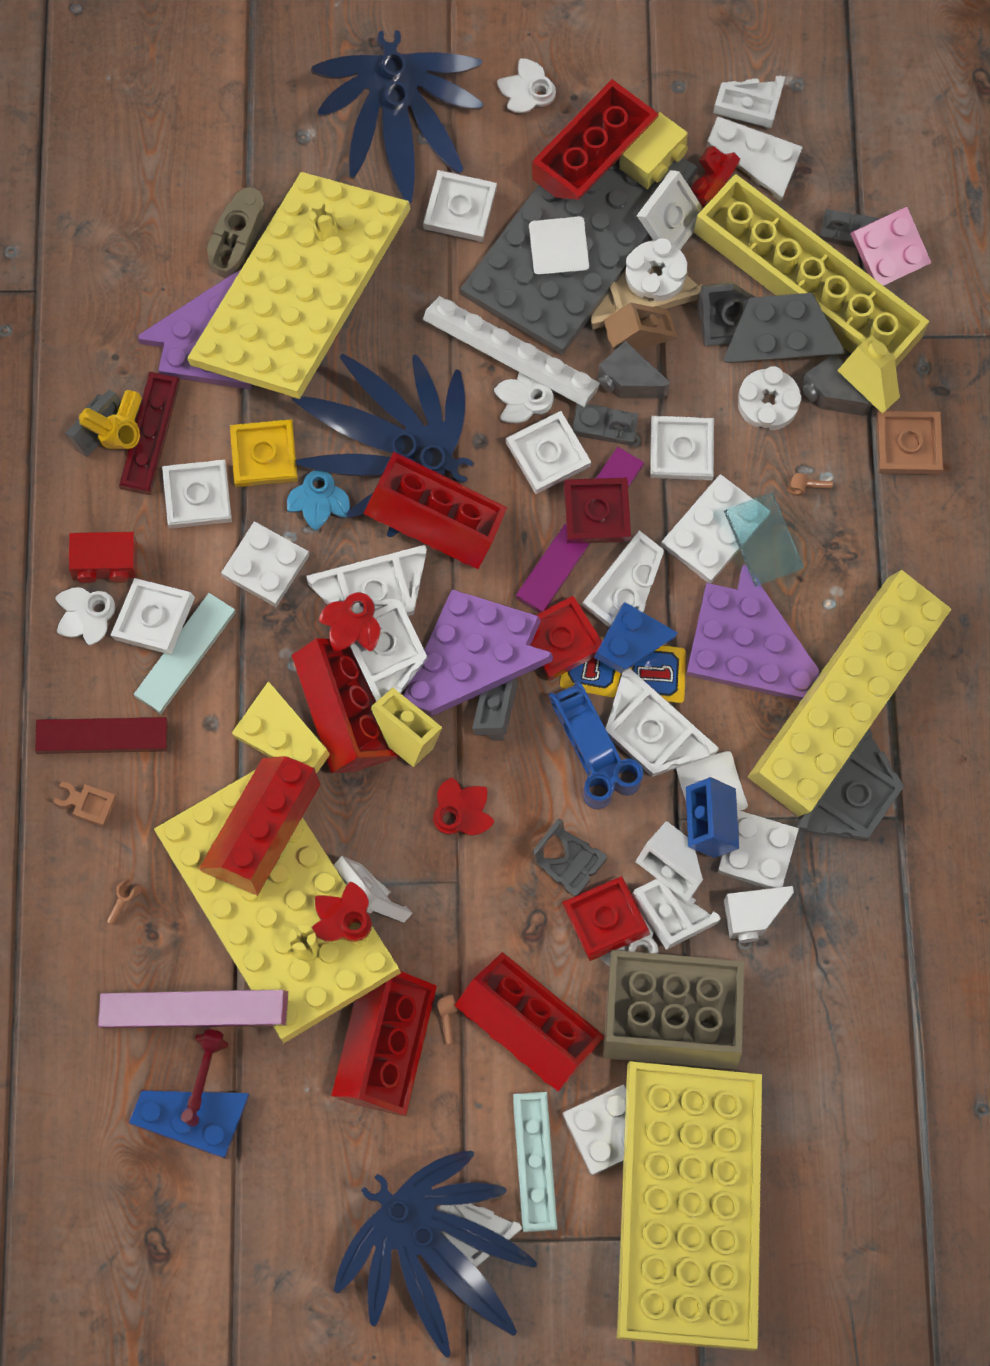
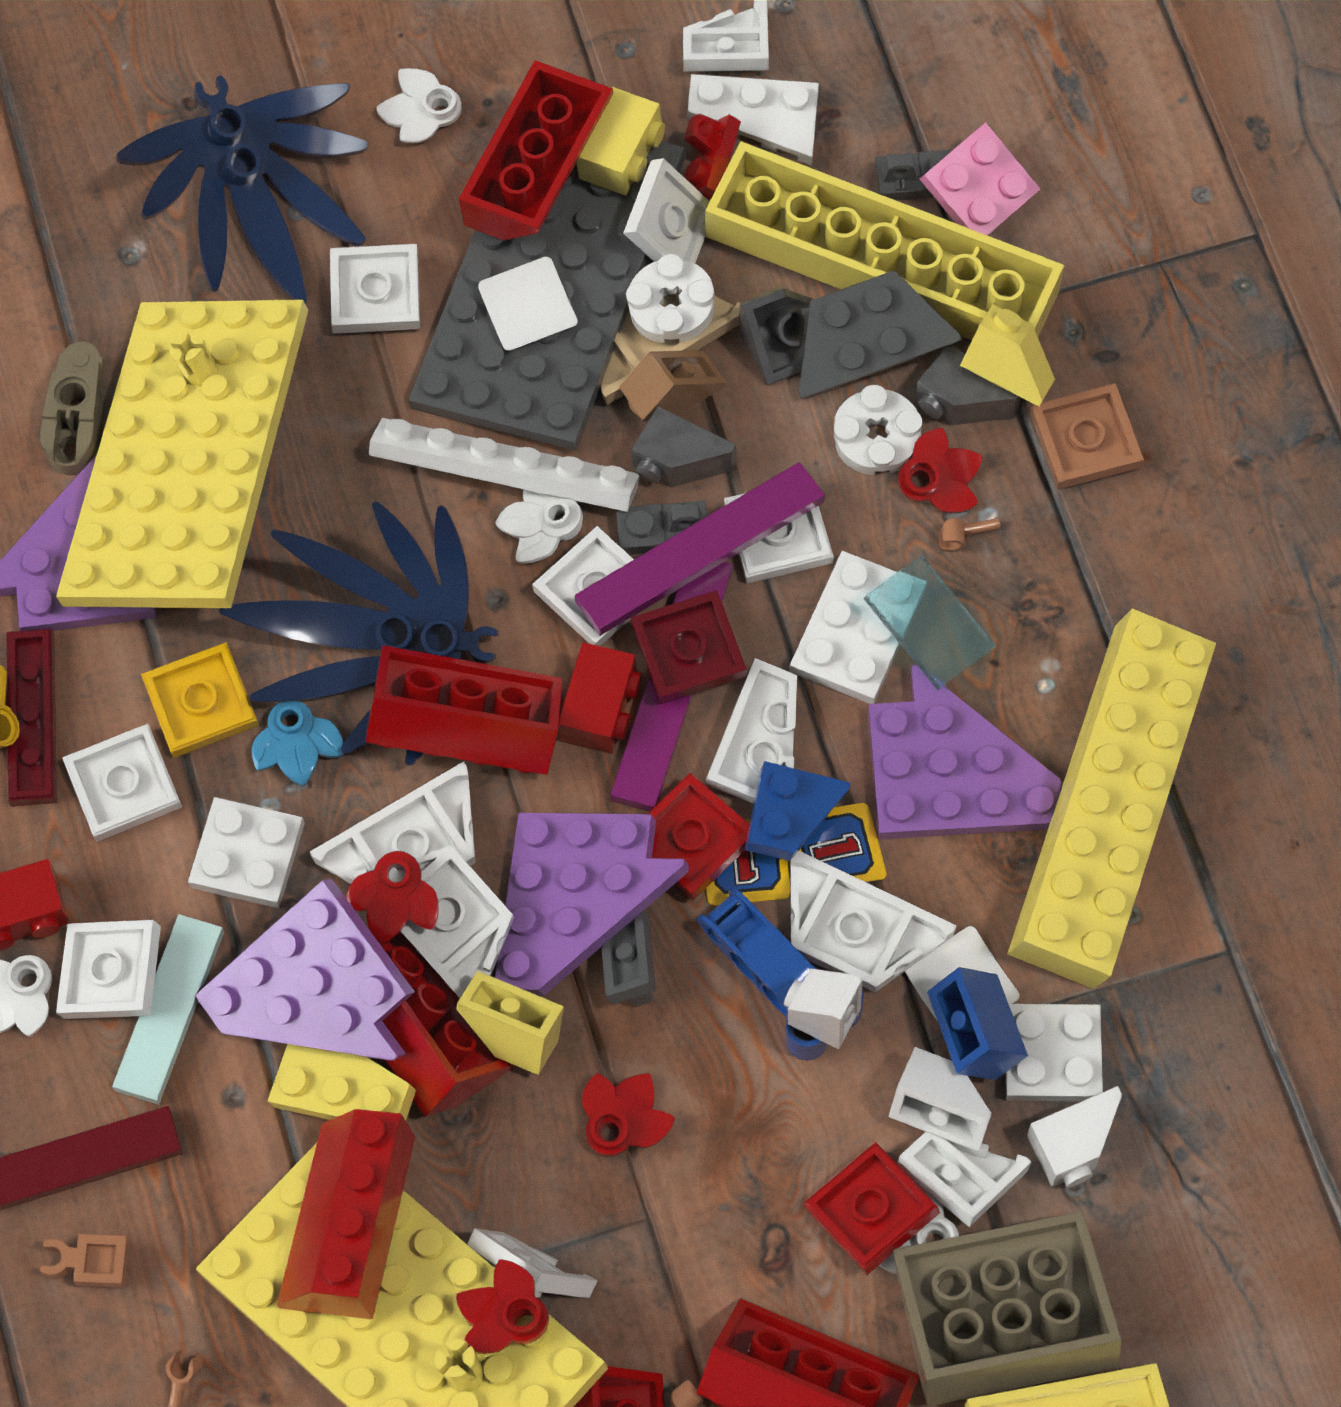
camera: 10 degrees left, 5 degrees down
(282, 664) = (312, 982): none -> wing
(527, 527) = (598, 697): none -> red brick
(576, 866) = (808, 1146): dark grey piece -> none
(614, 776) = (825, 1004): none -> white slope
(624, 445) = (699, 548): none -> magenta tile
(806, 437) = (946, 471): none -> red plate
(856, 795) = (1165, 937): dark grey wing -> none

